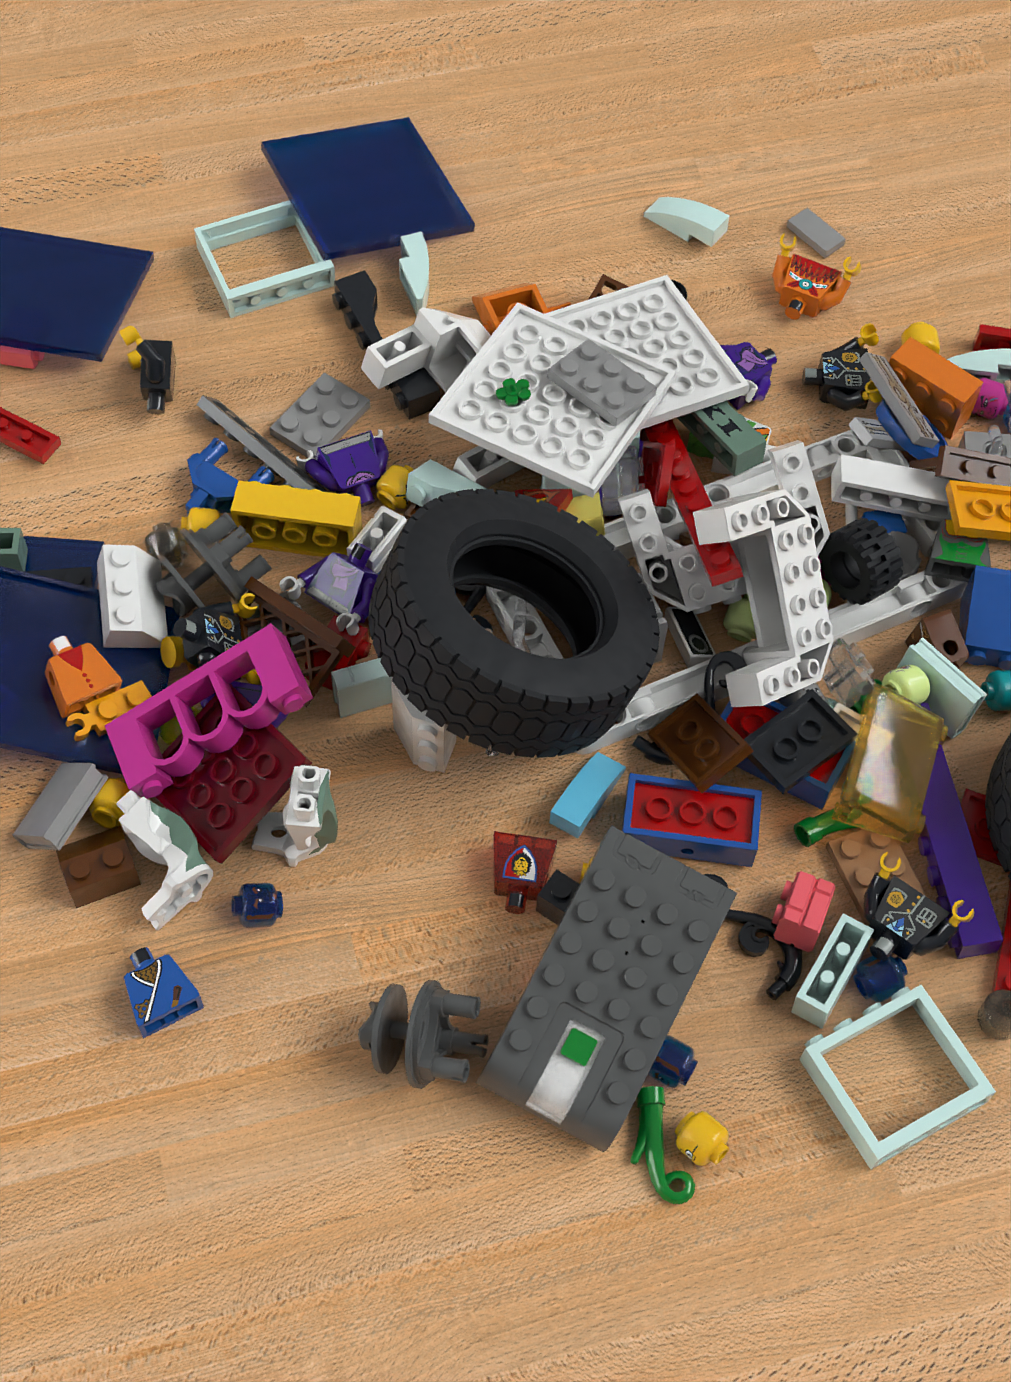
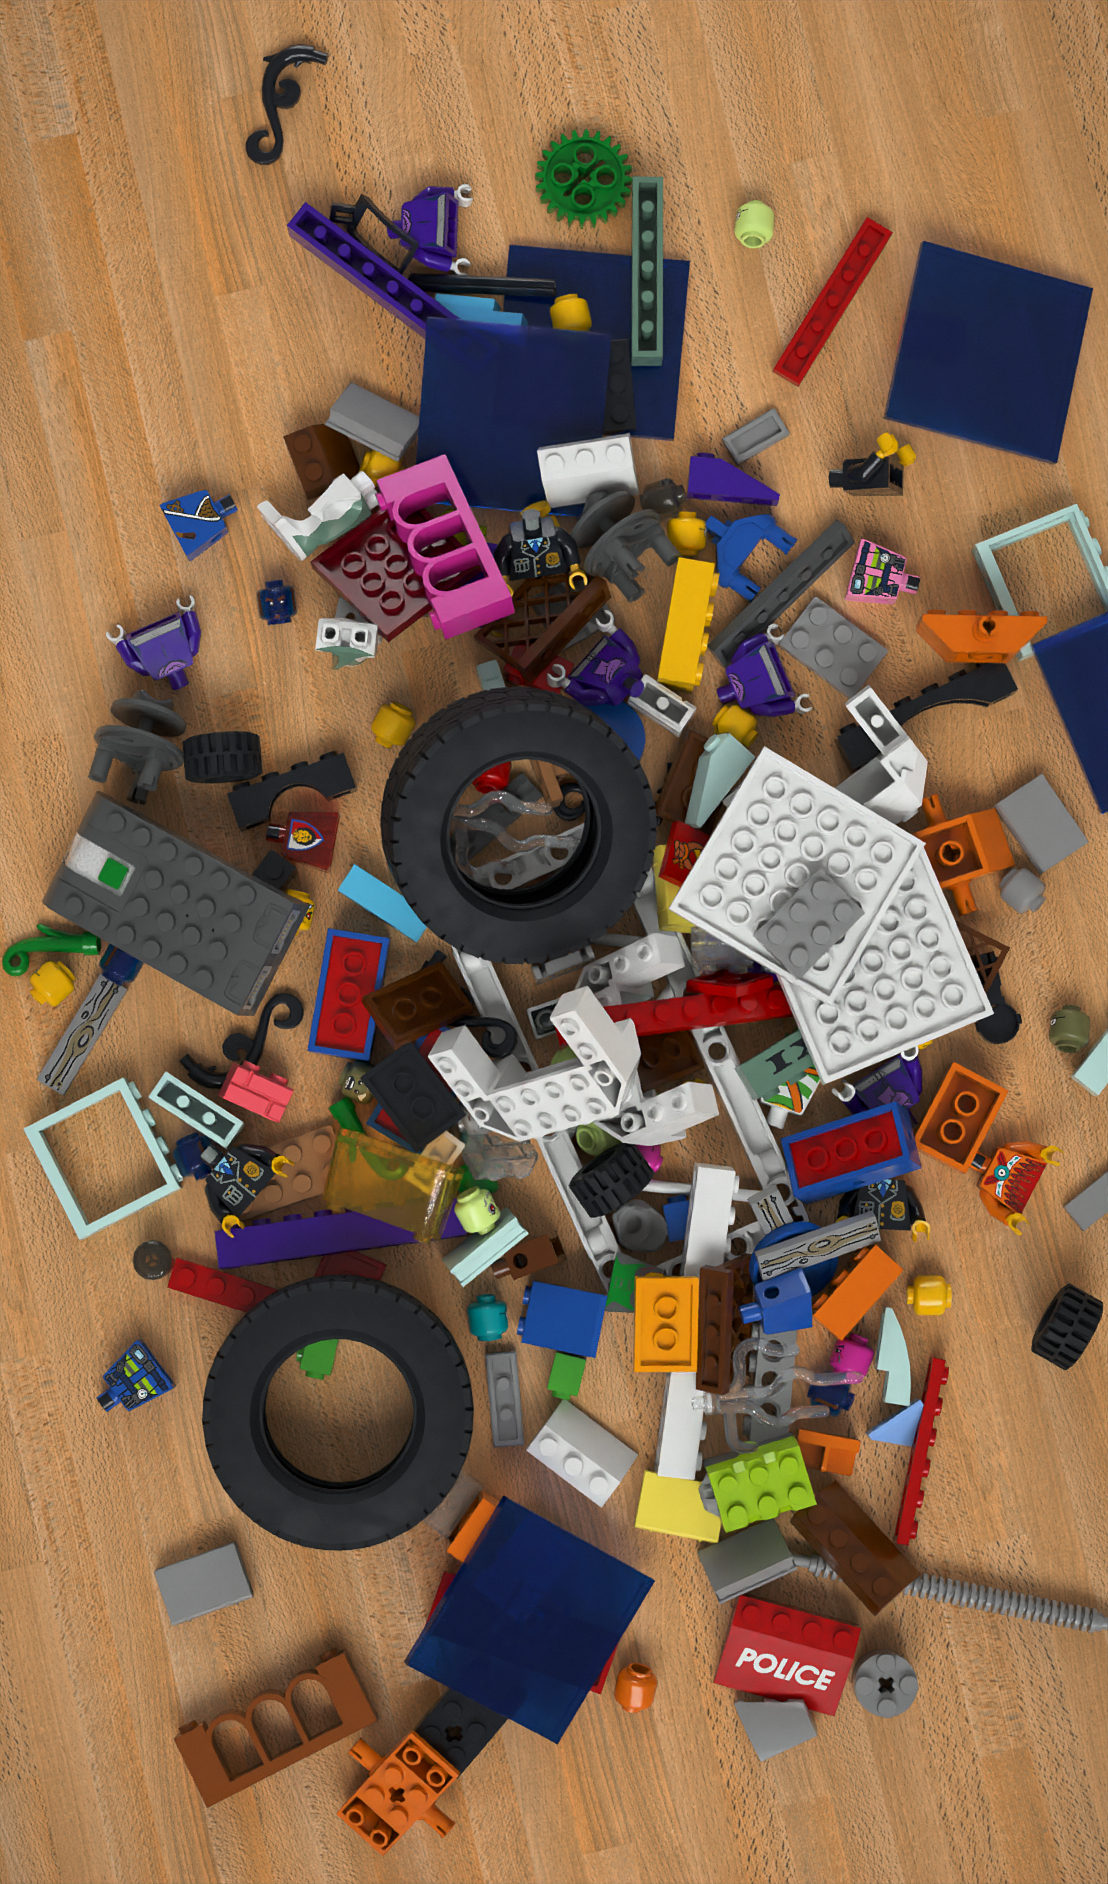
camera: 90 degrees right, 25 degrees up
(78, 676) = (496, 426): orange torso -> none
(107, 478) = (755, 437): none -> light grey tile
(107, 708) = (471, 463): light orange plate -> none
(152, 495) = (719, 481): none -> dark purple slope
(250, 379) = (879, 575): none -> torso
(304, 1022) = (162, 646): none -> dark purple torso
(316, 280) = (978, 637): none -> orange slope
(395, 787) = (393, 724): none -> yellow head
(415, 269) = (1027, 747): light aqua slope -> none
(436, 944) = (222, 757): none -> black tyre
(483, 921) = (255, 802): none -> black arch
(485, 264) = (1040, 824): none -> light grey piece
(513, 391) = (793, 833): green plant -> none
(548, 274) = (1022, 890): none -> light grey head
(669, 244) = (1069, 1029): none -> olive head
(756, 1107) = (82, 1035): none -> light grey tile
(759, 316) = (958, 1117): none -> orange brick
(779, 811) = (352, 1084): none -> olive head
(805, 380) = (851, 1153): none -> brick
(936, 236) = (1067, 1326): none -> black tyre
(961, 434) = (780, 1304): none -> blue torso

